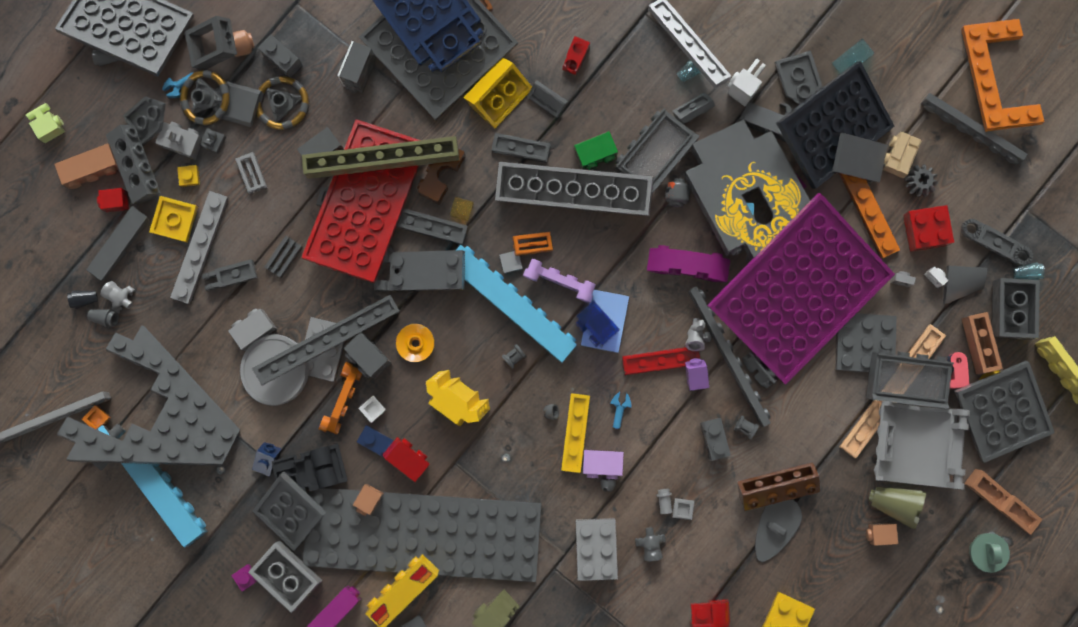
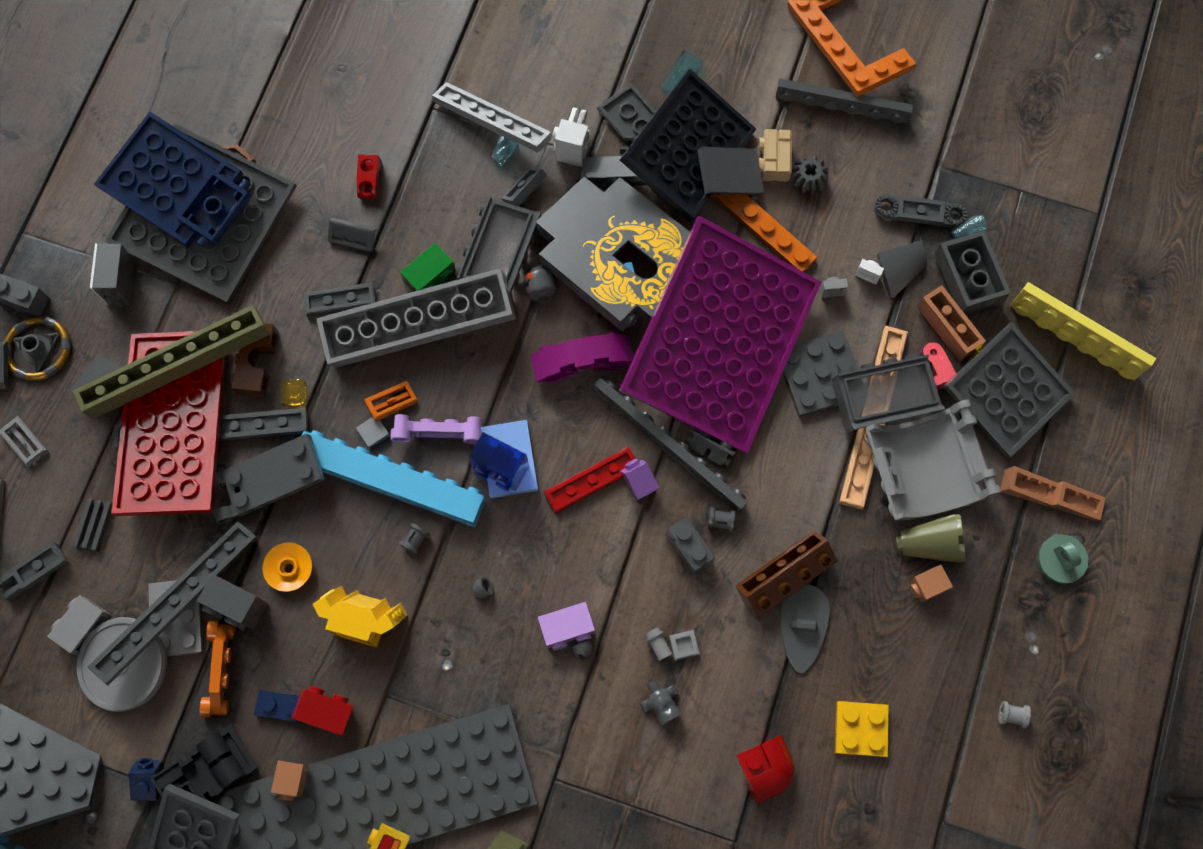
camera: 25 degrees left, 10 degrees down
(372, 409) = (260, 667): white plate -> none
(498, 92) = (292, 247): yellow slope -> none
(575, 433) = (520, 602): yellow plate -> none
(596, 549) = (596, 733): light grey brick -> none
(619, 409) = (564, 555): dark azure bar -> none
(696, 336) = (622, 437): light grey piece -> none
(928, 228) = (839, 222): red brick -> none

